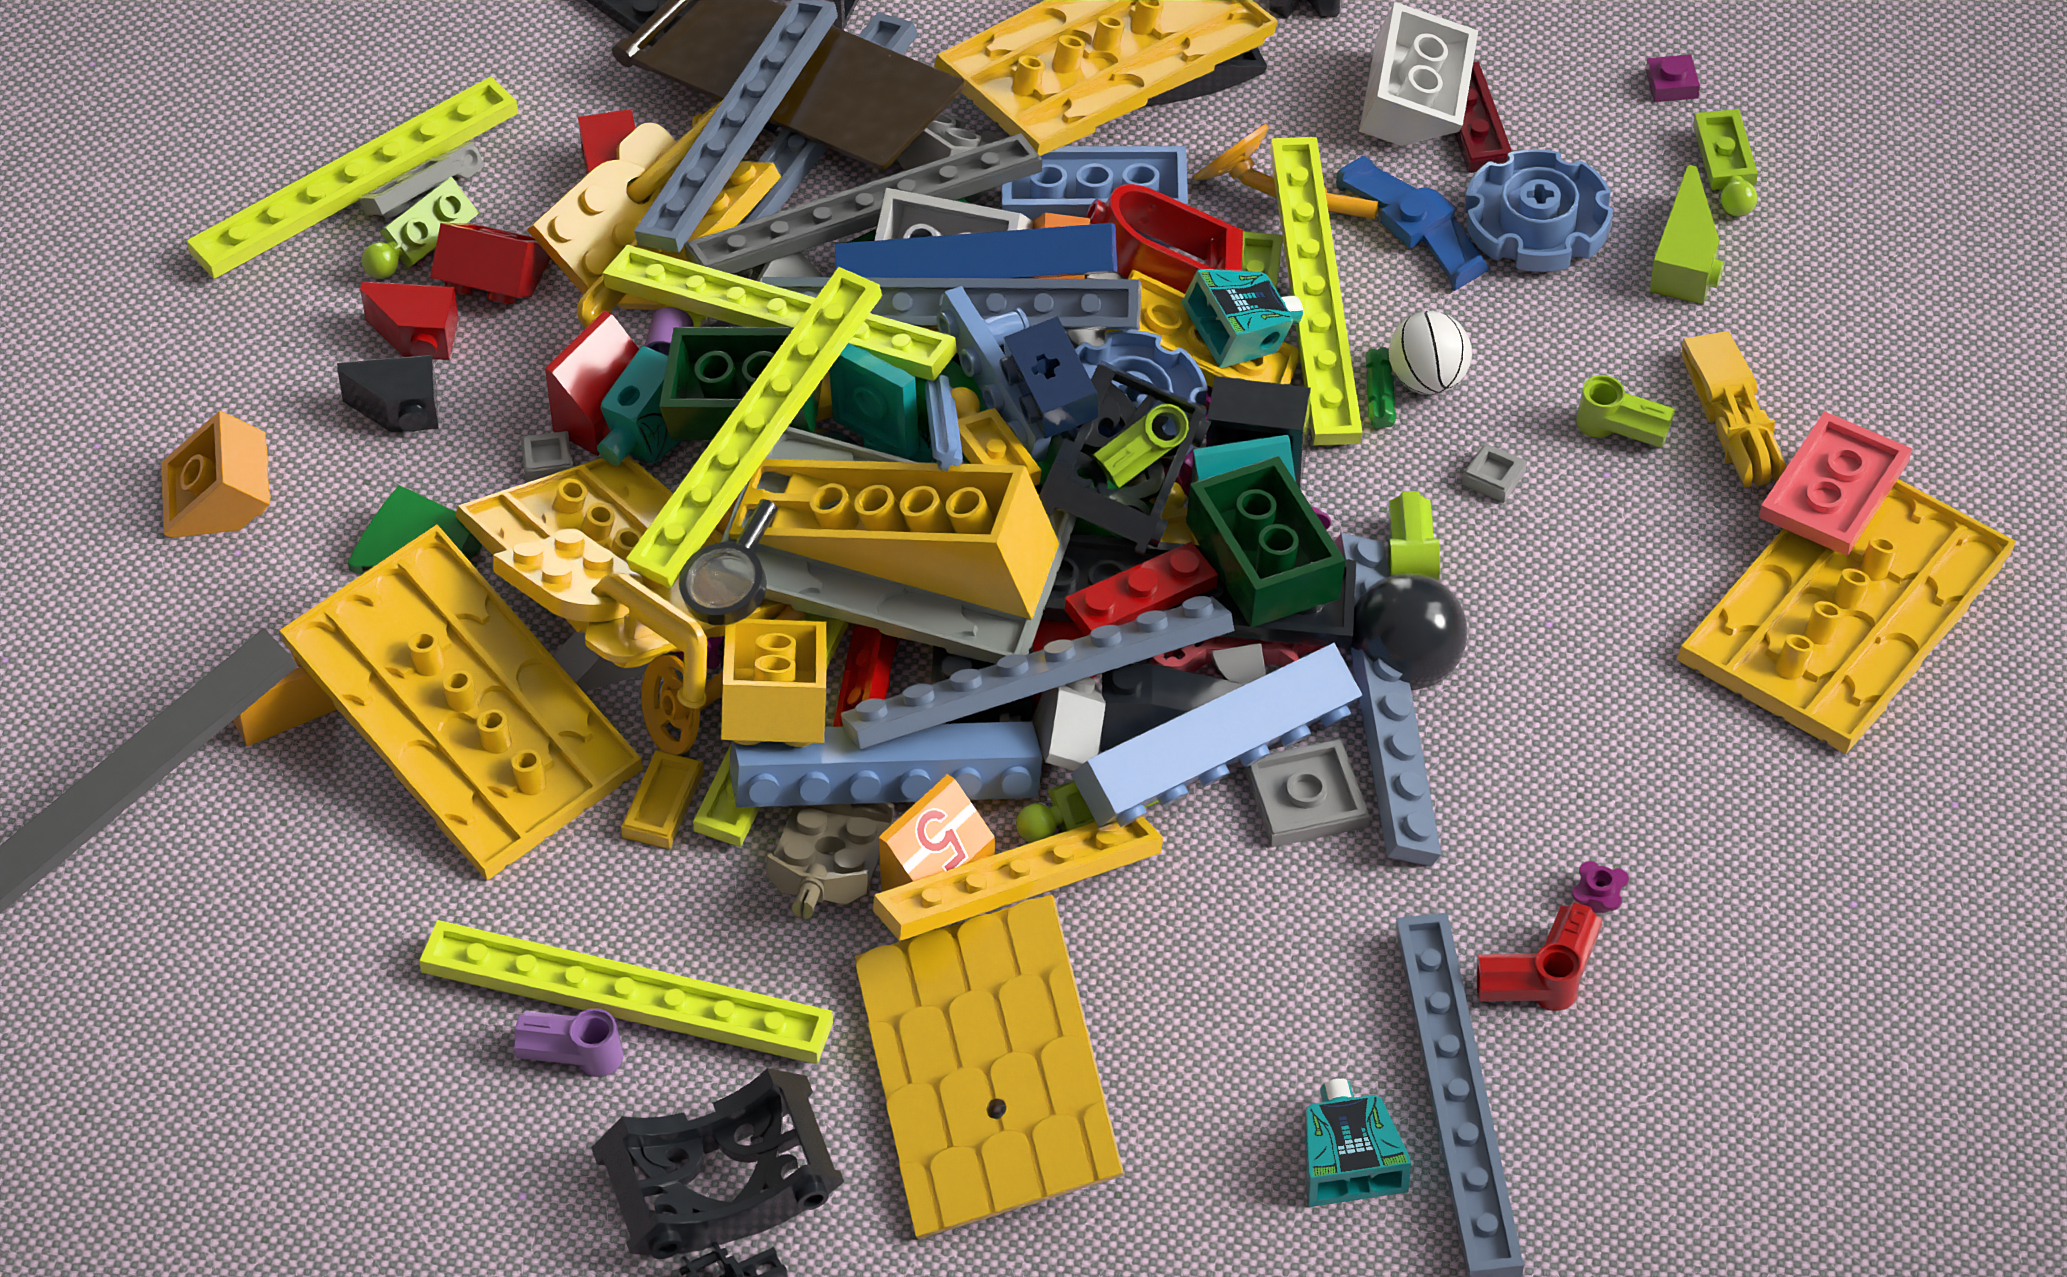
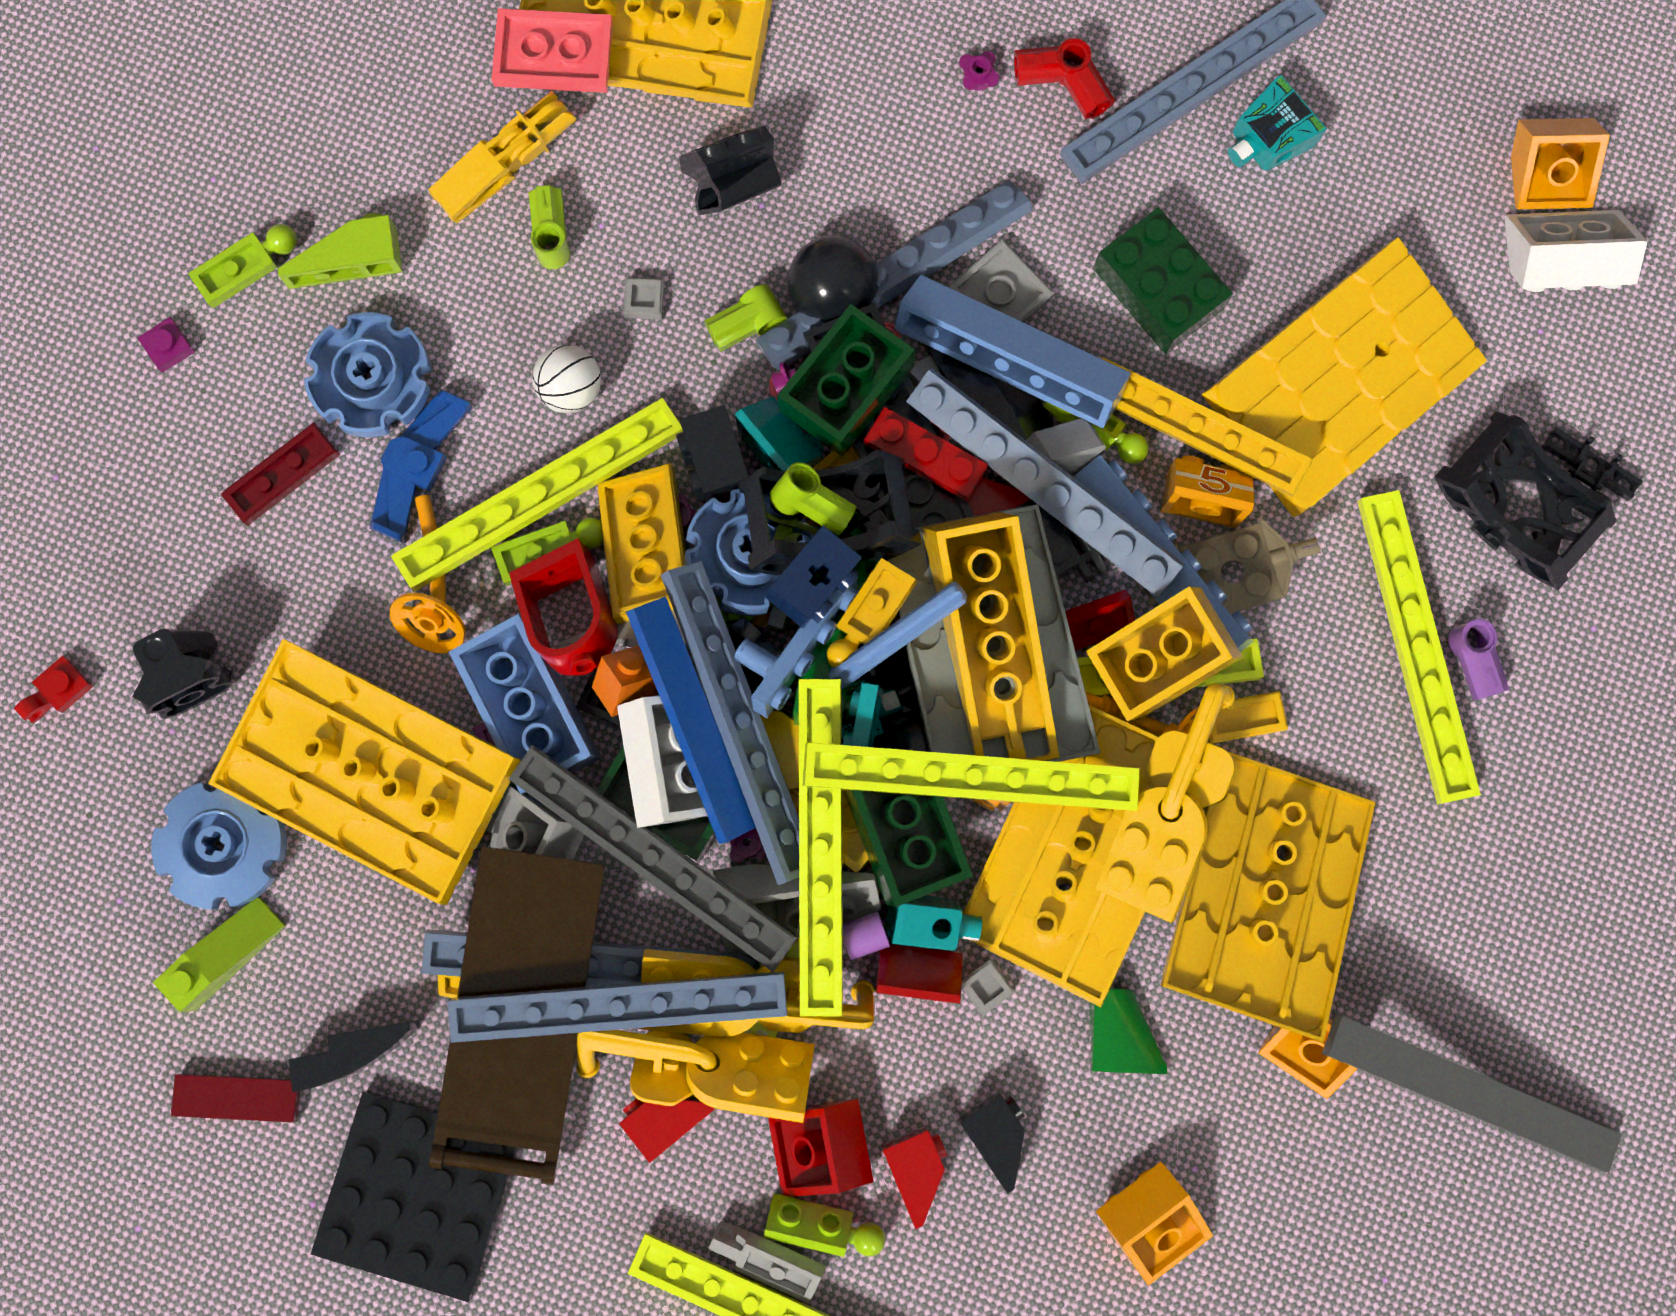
camera: 120 degrees left, 30 degrees up
(726, 578) = (1107, 731): piece -> none
(1220, 936) = (1162, 280): none -> dark green brick
(1239, 314) = (616, 516): teal torso -> none
(1380, 388) = (604, 411): green axle -> none
(1418, 77) = (271, 521): white slope -> none
(1595, 580) = (732, 170): none -> black piece

